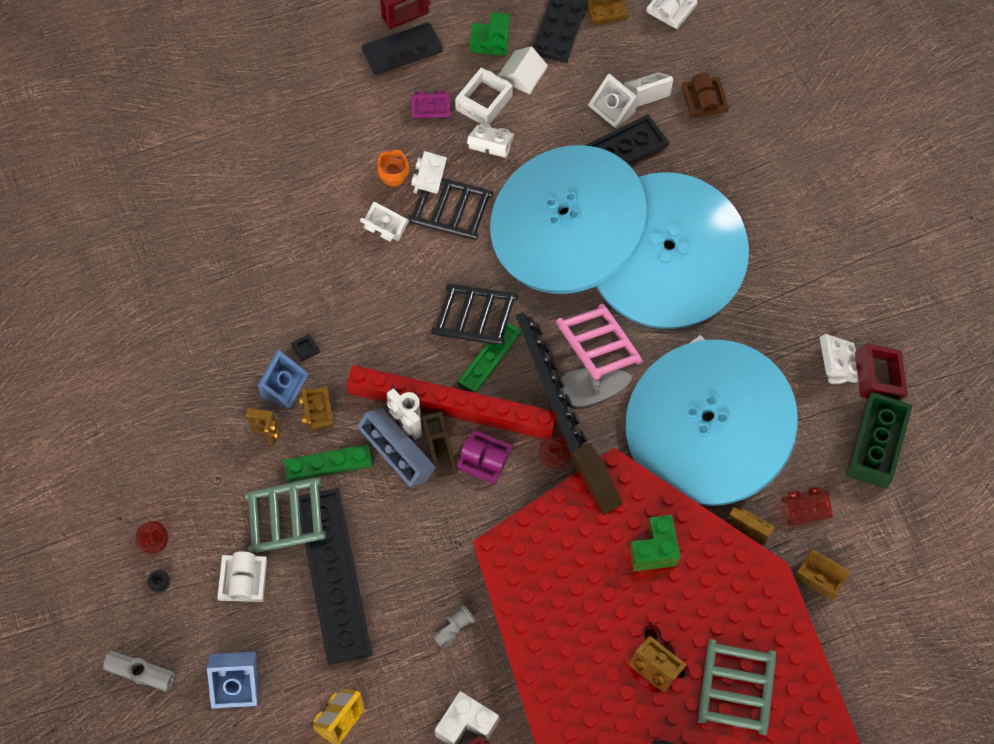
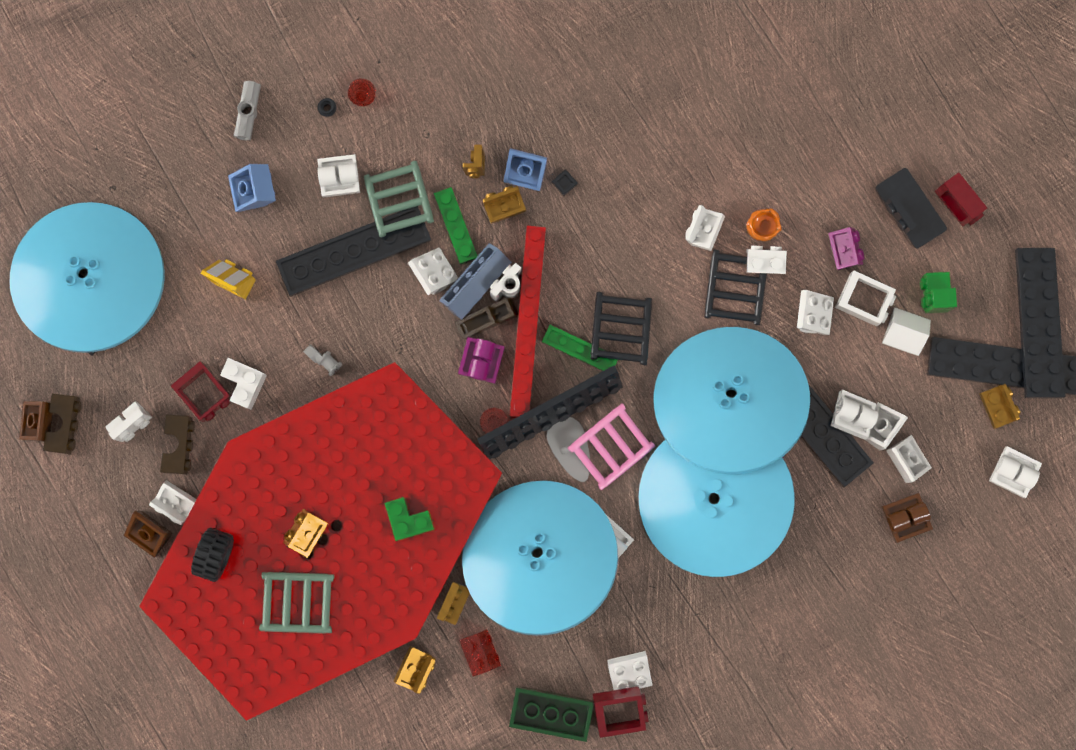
camera: 80 degrees right, 20 degrees up
(375, 489) = (433, 271): none -> white plate
(596, 478) = (462, 460): dark brown slope -> none
(599, 120) = (854, 414): none -> white plate

